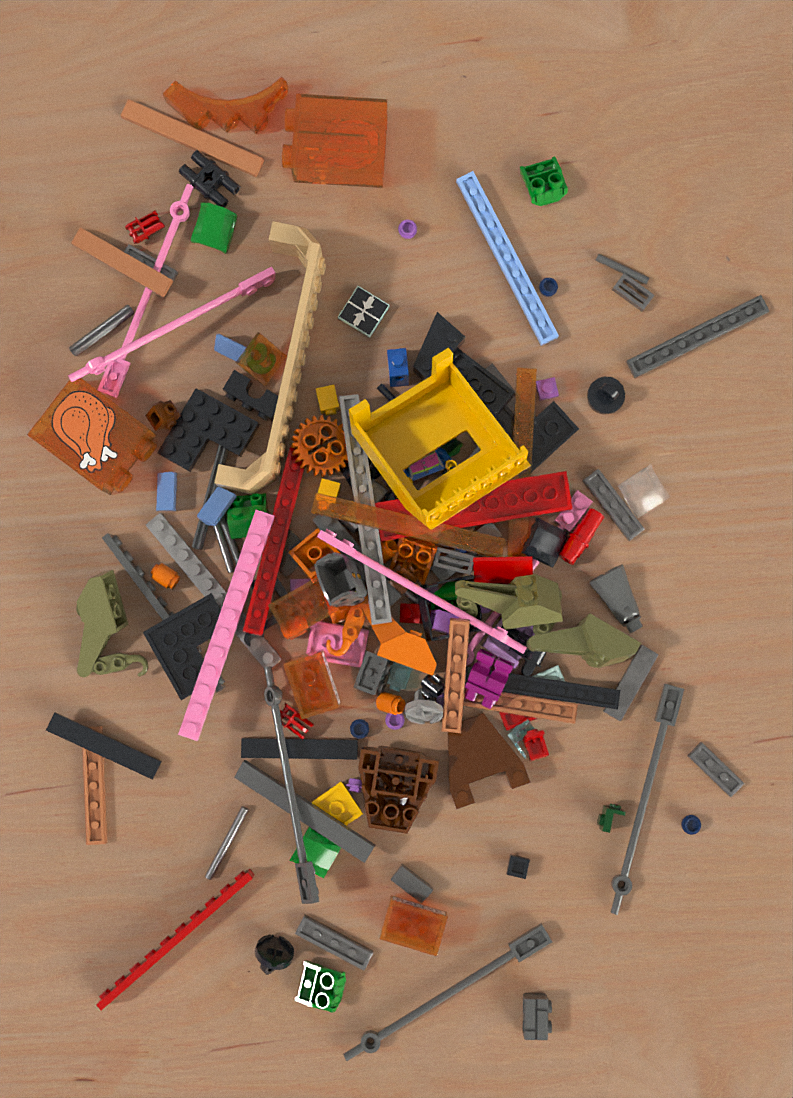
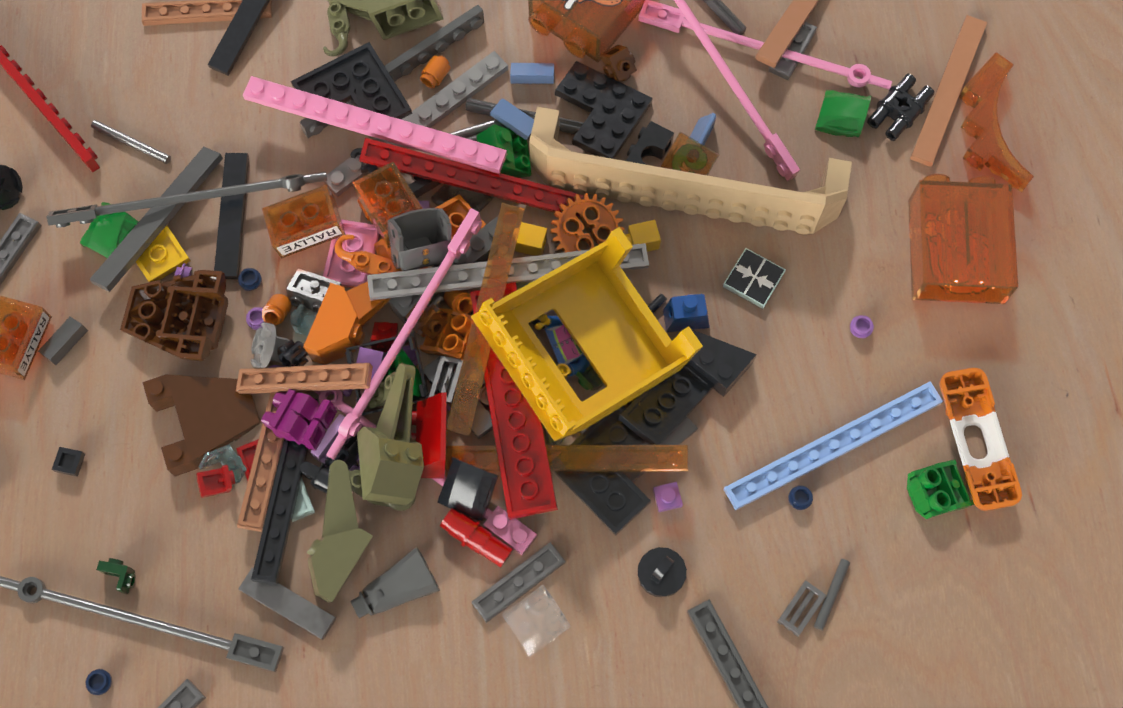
camera: 90 degrees right, 15 degrees down
(148, 225) = (838, 42): red arm -> none
(292, 720) = (254, 210): red arm -> none
(533, 139) = (969, 403): none -> orange piece

